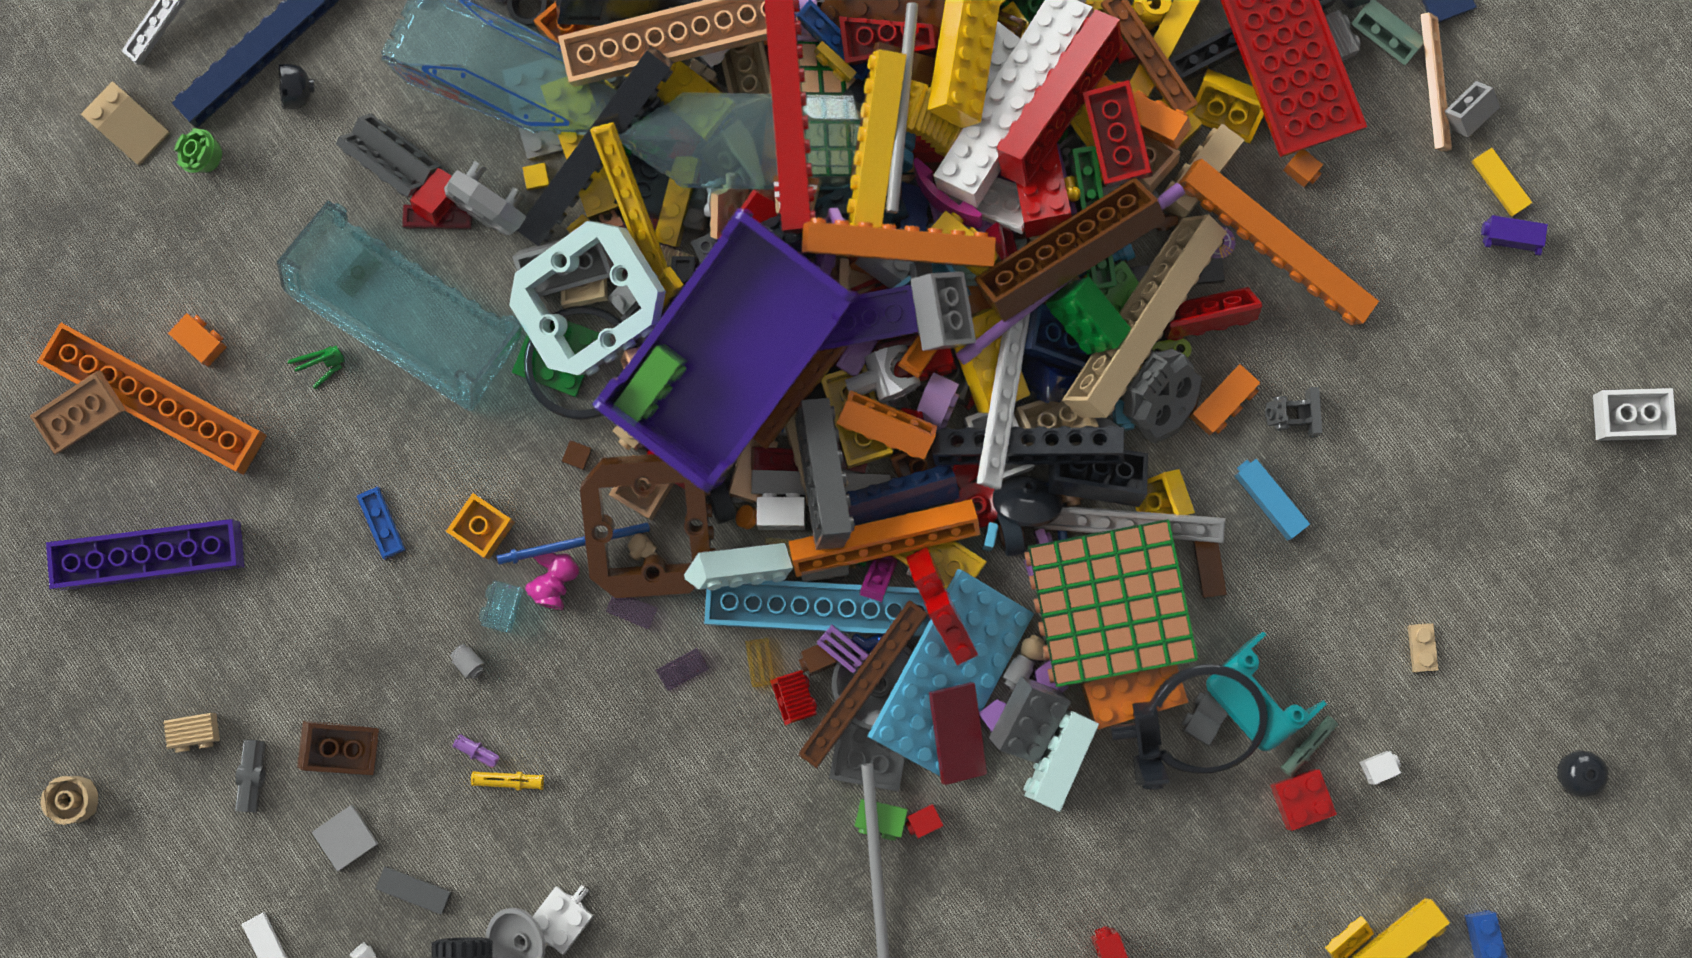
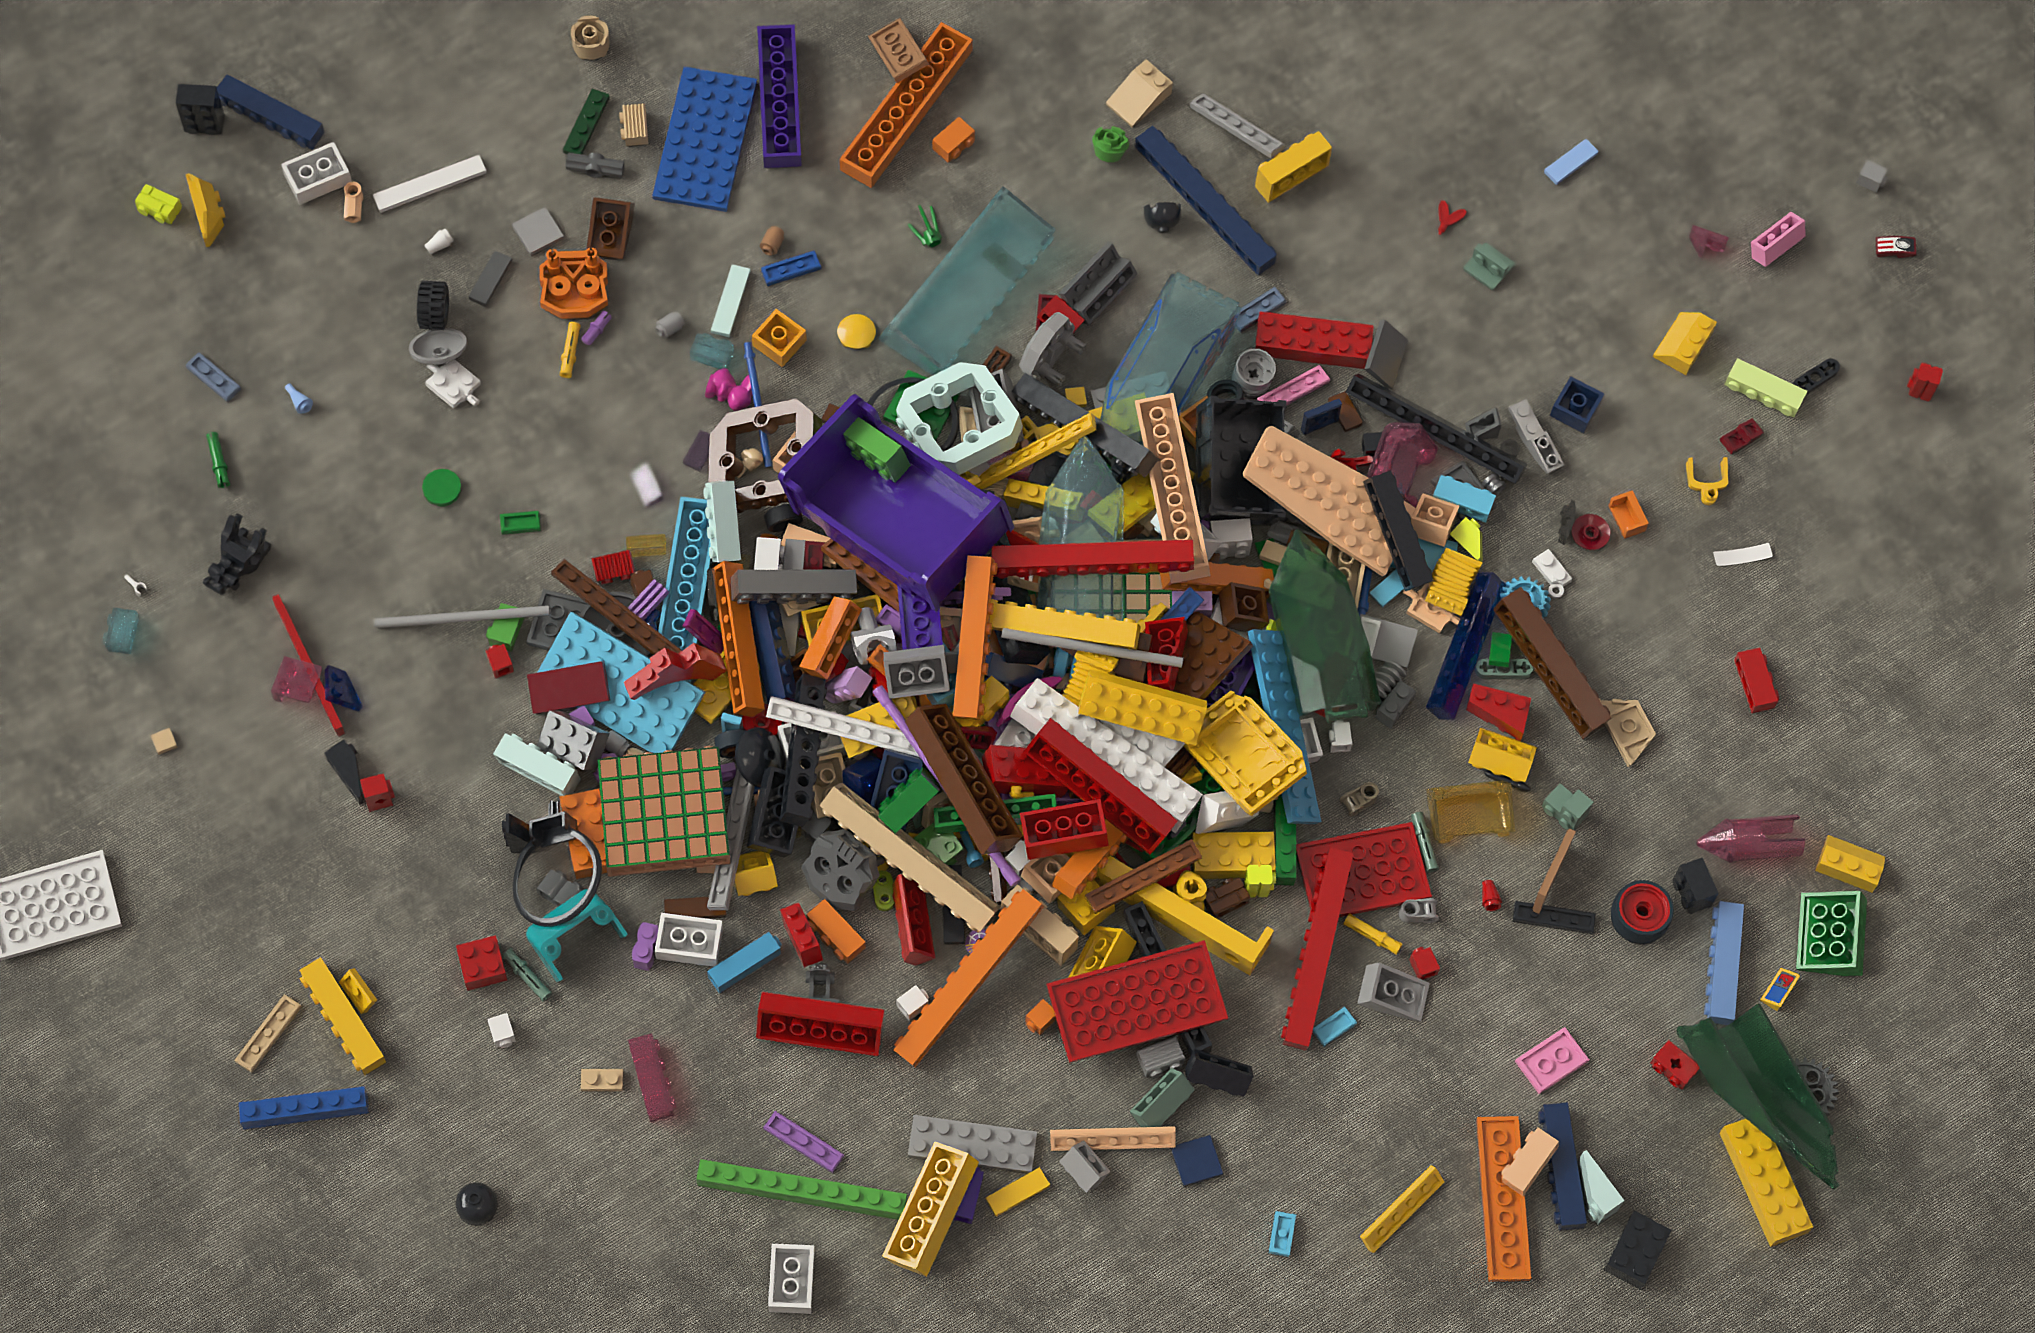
camera: 85 degrees right, 15 degrees down
(189, 793) = (586, 122): none -> dark green plate
(206, 643) = (704, 139): none -> blue plate
(346, 547) = (772, 240): none -> medium nougat brick
(429, 591) = (730, 301): none -> light aqua tile
(438, 782) = (573, 272): none -> orange brick
(463, 437) = (856, 331): none -> yellow dish
(482, 264) = (1002, 353): none -> reddish brown tile
(700, 917) = (441, 487): none -> green tile
(740, 816) = (520, 522): none -> green tile
(1240, 435) = (801, 935): none -> red brick
(1254, 563) = (688, 939): none -> white brick
(1271, 614) = (644, 949): none -> medium lavender brick
(1300, 308) = (912, 1002): none -> white brick
(1343, 405) = (820, 1024): none -> red brick
(1418, 591) = (651, 1078): none -> clear pink brick
(1452, 234) = (990, 1145): none -> light grey plate
(1469, 417) = (803, 1142): none -> medium lavender tile
(1530, 413) = (801, 1189): none -> bright green brick
(1546, 267) = (930, 1209): none -> yellow brick

